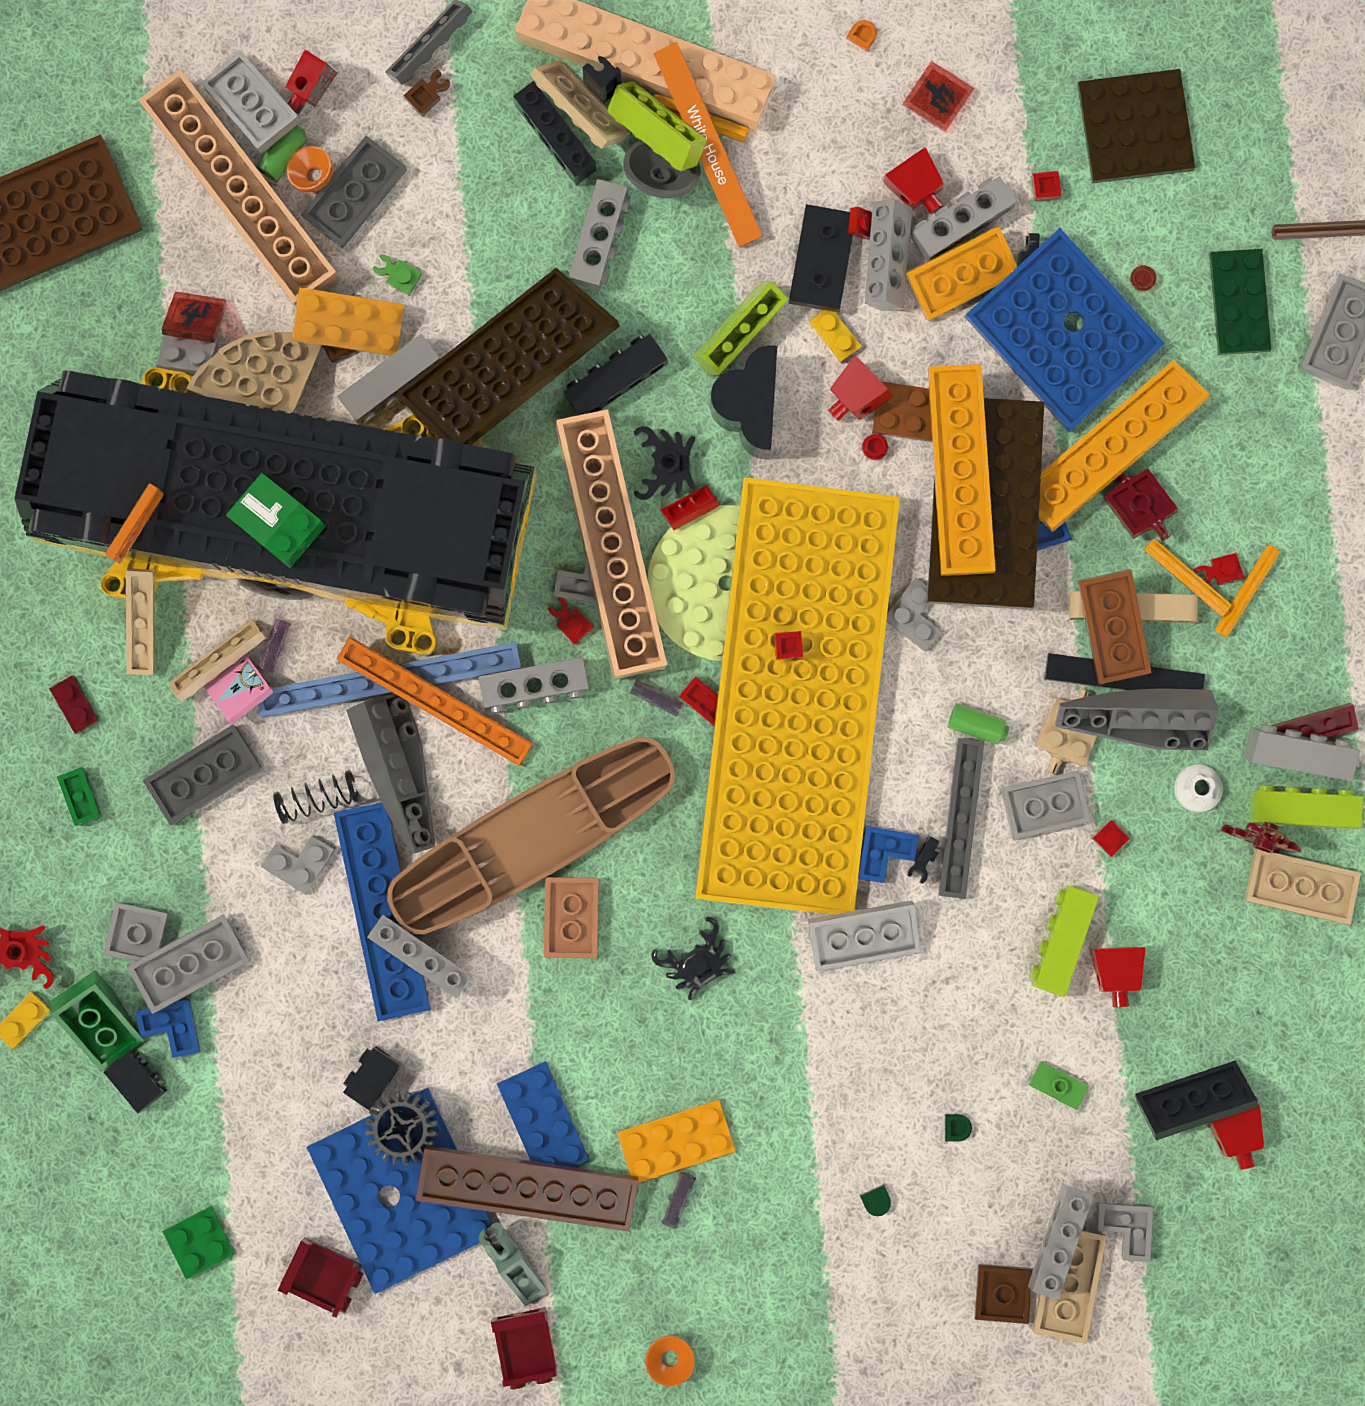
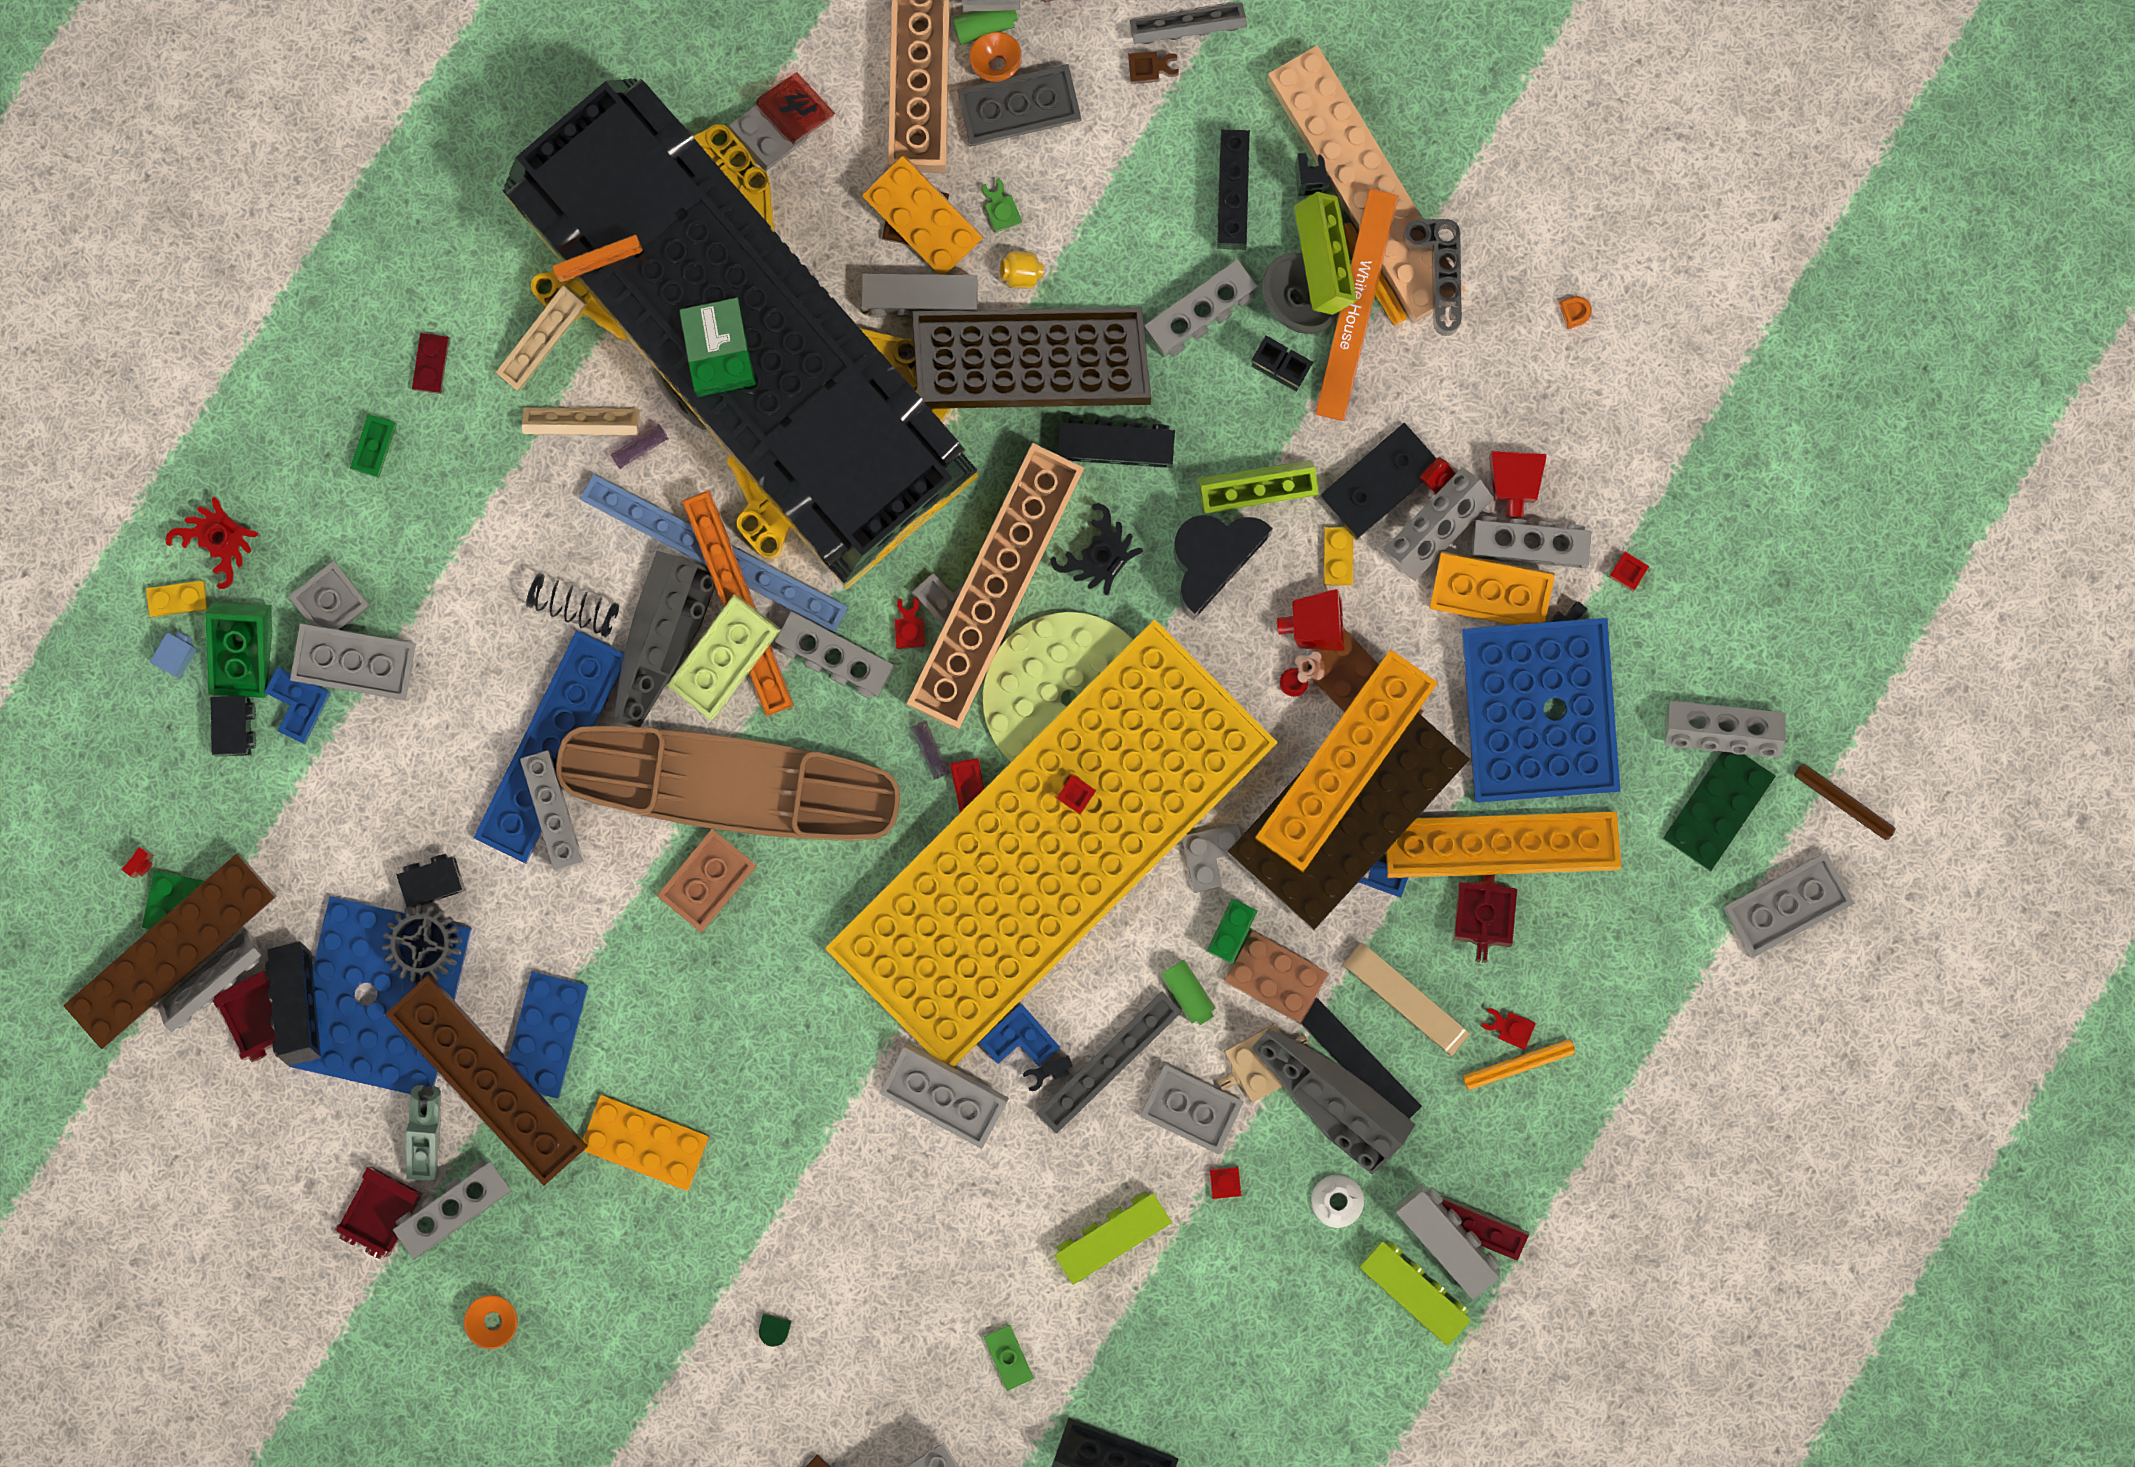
camera: 45 degrees right, 0 degrees up
(51, 1062) = (174, 654): none -> medium blue brick
(146, 1235) = (139, 863): none -> red plate
(202, 775) = (491, 509): dark grey plate -> none
(220, 1280) = (170, 951): none -> reddish brown plate
(238, 689) = (579, 460): bright pink tile -> none
(258, 371) = (808, 202): tan plate -> none
(266, 1279) = (210, 979): none -> light grey plate
(299, 871) = (512, 658): light grey plate -> none
(342, 1247) = (293, 1003): none -> black brick
(448, 306) = (1021, 270): none -> yellow head
(455, 747) = (723, 657): none -> yellowish green tile
(571, 1346) = (418, 1242): none -> light grey brick
(579, 103) = (1274, 180): tan plate -> none
(678, 1200) = (606, 1193): clear purple pin -> none
(689, 230) = (1280, 365): none -> black hips
(690, 507) = (1090, 608): red plate -> none
(698, 965) = (784, 1008): black animal -> none
(752, 76) = (1440, 276): none -> dark grey beam
(879, 418) = (1317, 671): none -> nougat plate
(938, 96) = (1598, 418): clear red tile -> none
(957, 1127) = (892, 1323): dark green tile -> none
(973, 656) = (1231, 931): none -> green brick
(1031, 664) = (1276, 977): none -> nougat plate
(1114, 626) = (1372, 1001): dark orange plate -> none
(1119, 971) = (1138, 1302): red torso -> none
(1136, 126) = (1753, 580): dark brown plate -> none
(1143, 278) = (1649, 719): clear red plate -> none
(1188, 577) = (1475, 1011): light orange axle -> none
(1202, 242) = (1725, 729): none -> light grey brick
(1264, 838) = (1355, 1286): dark red animal -> none
(1302, 887) = (1357, 1357): tan plate -> none

